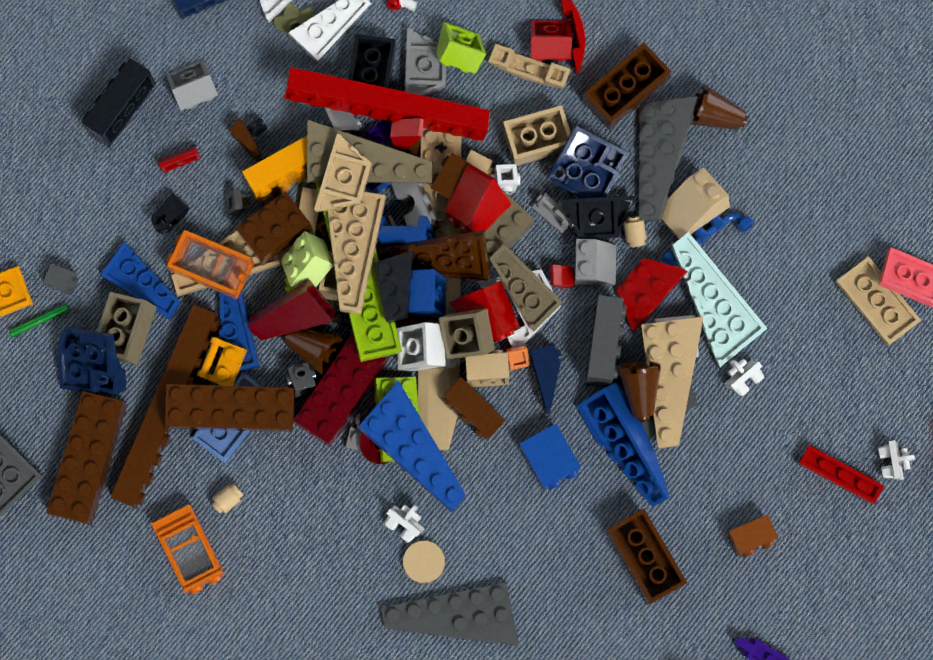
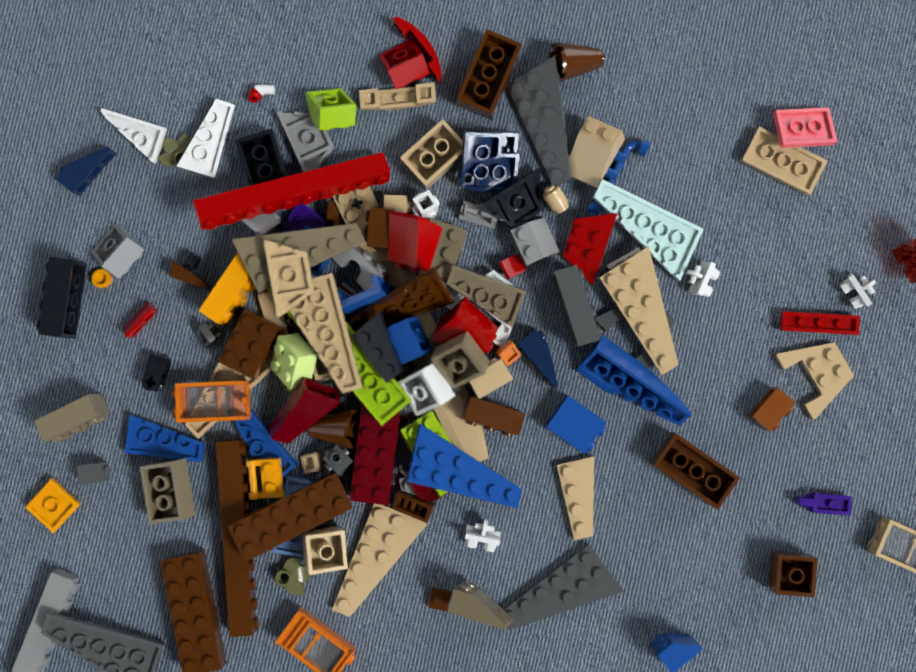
camera: 25 degrees left, 10 degrees up
(39, 320) = (93, 514): green bar -> none
(70, 217) = (73, 418): none -> dark tan brick
(89, 362) = (153, 534): dark blue slope -> none
(163, 103) = (101, 278): none -> light orange tile
(203, 473) = (296, 576): none -> olive plate
(226, 498) = (326, 588): tan brick -> none
(244, 457) = (324, 550): none -> tan brick
(275, 371) = (313, 462): none -> tan slope
(298, 485) = (380, 546): none -> tan wing
(331, 564) = (439, 599): none -> reddish brown plate
(359, 574) = (478, 606): none -> dark tan slope
(369, 467) = (418, 514): none -> reddish brown slope
(406, 132) = (322, 208): red slope -> none
(423, 562) = (513, 560): tan tile -> none
(520, 526) = (578, 492): none -> tan wing
(641, 387) = (625, 331): reddish brown cone -> none
(826, 521) = (826, 370): none -> tan wing

